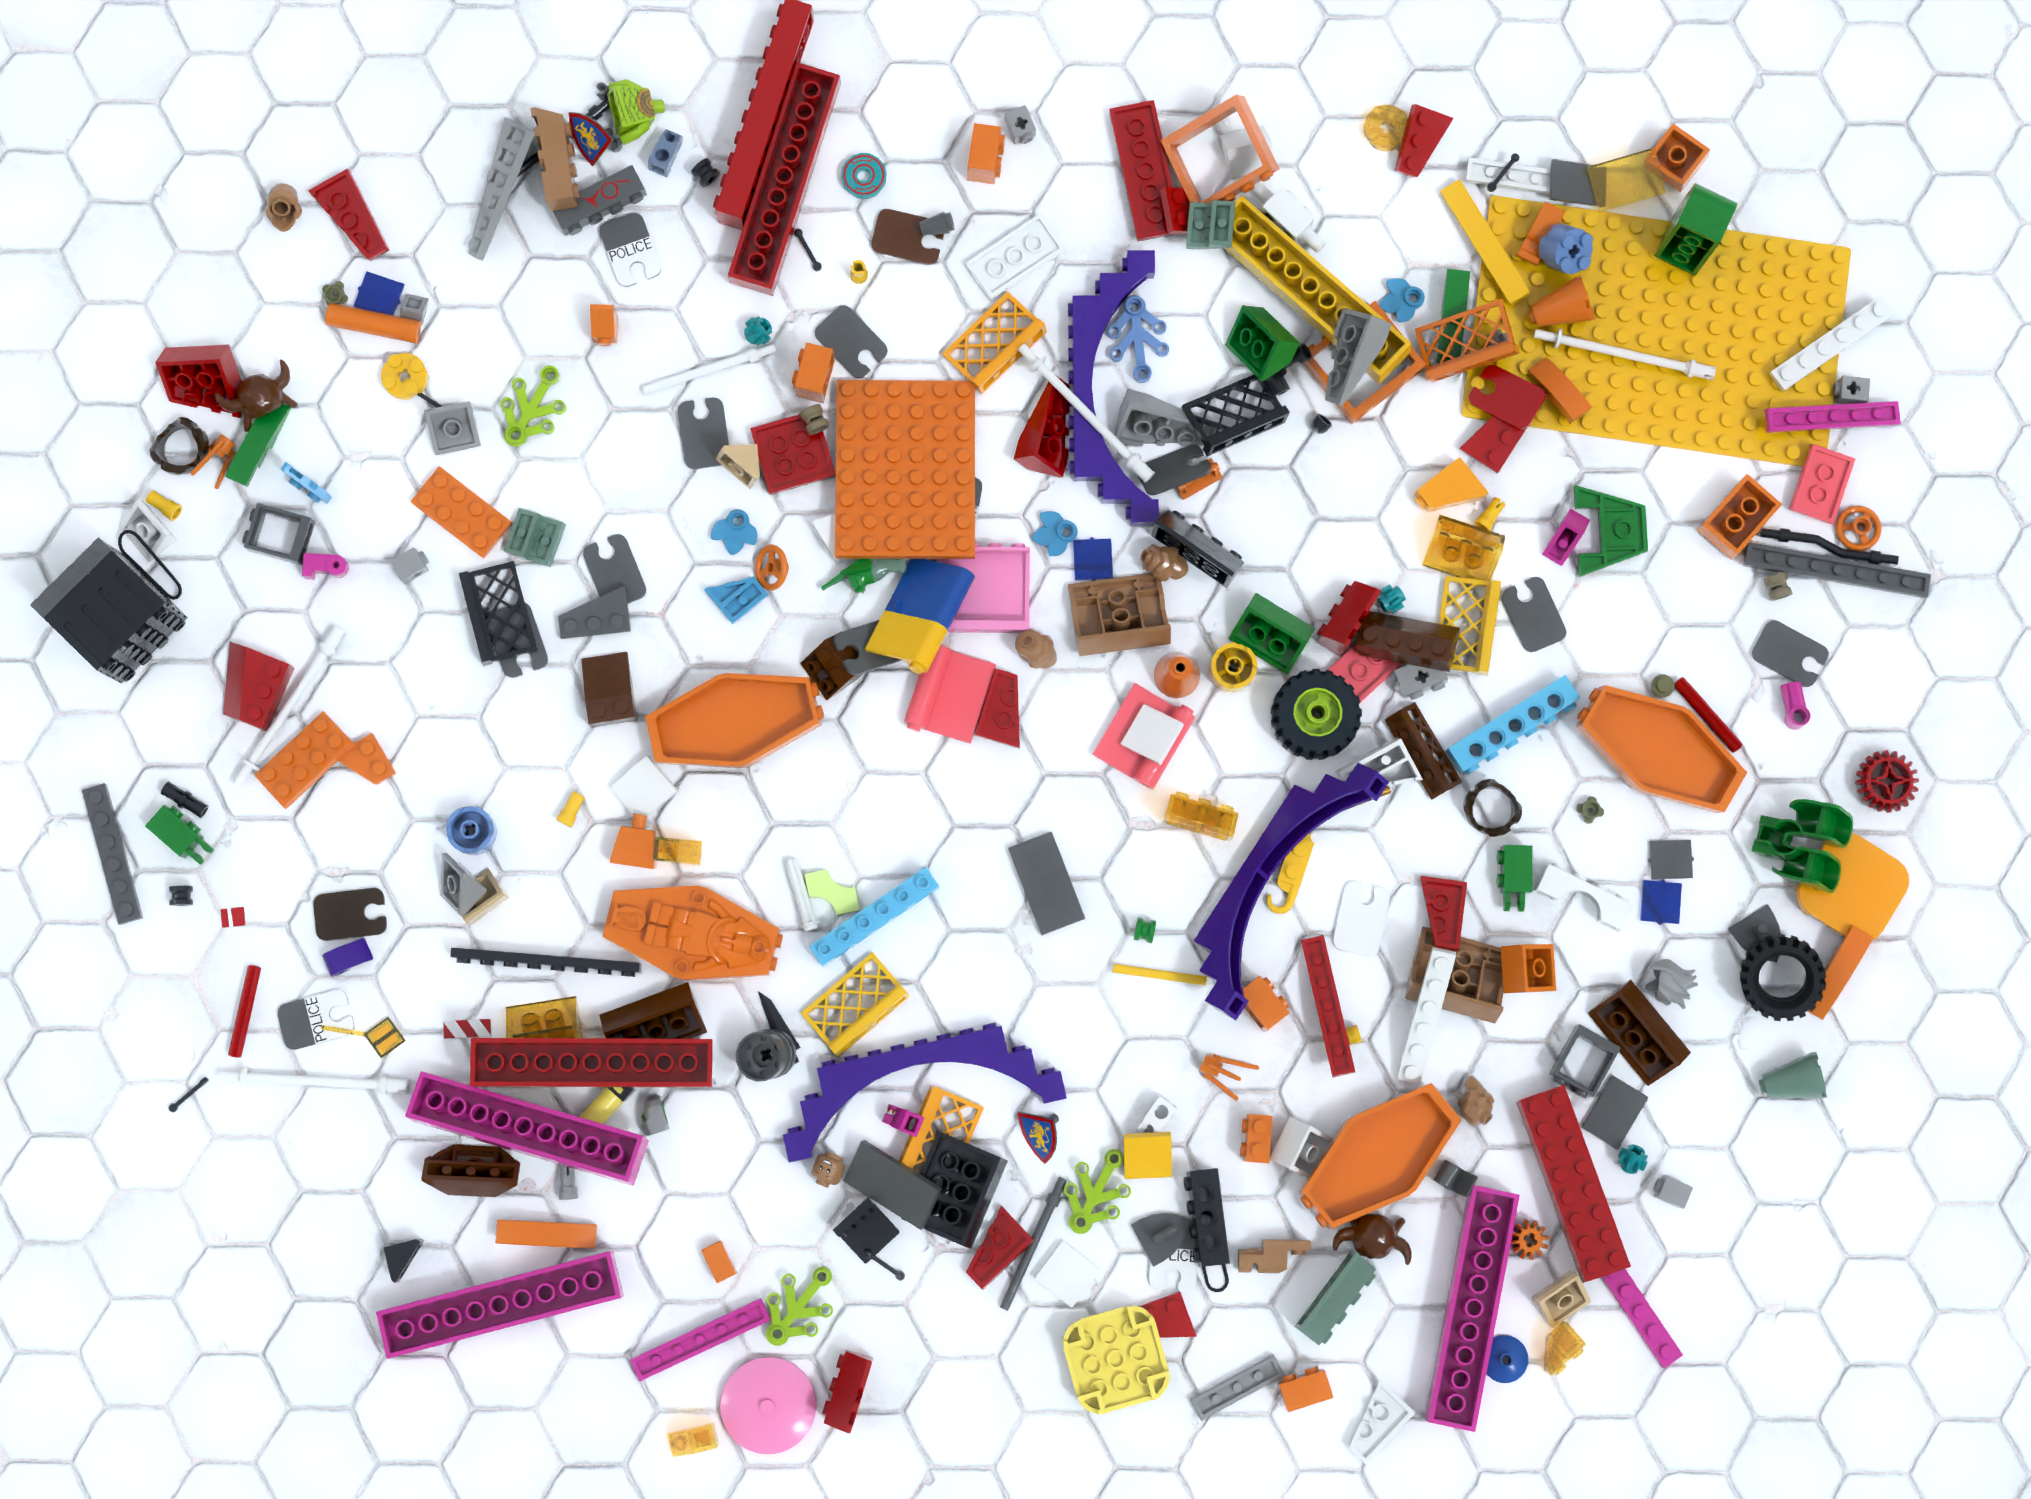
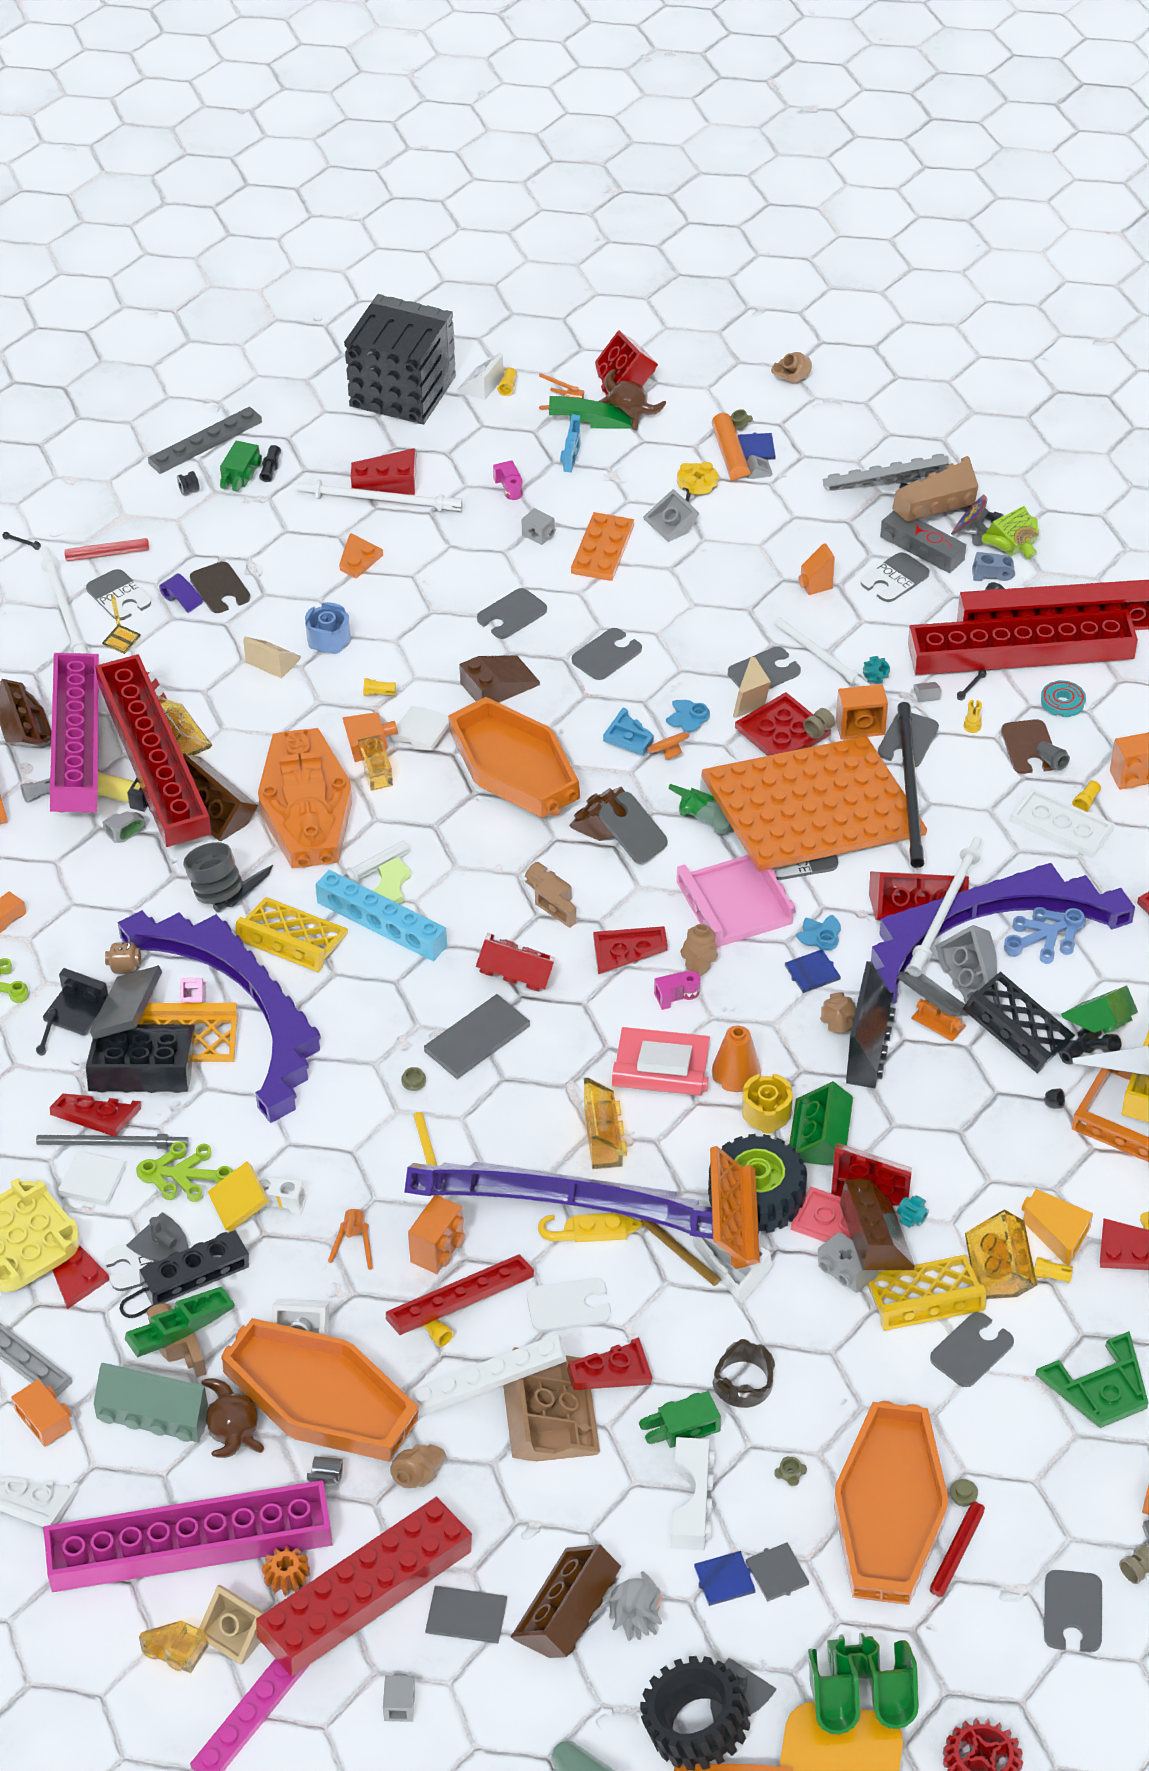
camera: 75 degrees right, 35 degrees down
(156, 558) = (458, 390): black piece -> none
(157, 448) = (549, 364): dark brown piece -> none
(233, 917) = (185, 522): red sticker -> none
(301, 540) = (523, 459): dark grey window -> none
(304, 760) = (338, 517): orange plate -> none
(348, 208) = (815, 406): red wing -> none
(459, 886) = (279, 629): light grey slope -> none
(478, 619) = (517, 579): black fence -> none
(530, 409) = (695, 556): lime plant -> none
(534, 537) = (607, 594): sand green slope -> none
(535, 961) = (236, 717): black plate -> none
(597, 617) = (560, 652): dark grey wing -> none
(798, 294) = (927, 691): none -> light grey slope
(911, 750) = (552, 893): none -> medium nougat plate
(920, 612) = (684, 850): door -> none
(950, 695) = (621, 901): coral door -> none
(980, 818) = (515, 964): none -> red wedge
(999, 222) = (1086, 797): none -> yellow pin
(1008, 356) = (953, 839): light orange fence -> none
(1008, 406) = (916, 849): none -> black piece
(1039, 1134) = (232, 1108): shield -> none
(1068, 679) = (676, 987): none -> dark pink leg
(1073, 957) = (413, 1079): none -> olive plate
(1119, 614) = (768, 1003): medium nougat piece -> none
(1144, 930) = (467, 1122): green wheel -> none
(1257, 1138) = (295, 1281): orange brick -> none
(1271, 1250) = (185, 1318): none -> green slope
(1366, 752) = (734, 1209): none -> orange fence
(1422, 751) = (765, 1291): reddish brown fence -> none
(1510, 1372) = (143, 1611): blue dish -> none
(1528, 968) = (585, 1456): orange brick -> none
(1560, 689) = (837, 1351): medium azure brick -> none
(1566, 537) = (1071, 1342): dark pink slope -> none
(1595, 1040) = (513, 1535): dark grey window -> none
(1632, 1159) = (419, 1641): teal gear -> none
(1794, 703) = (1016, 1628): dark pink piece -> none

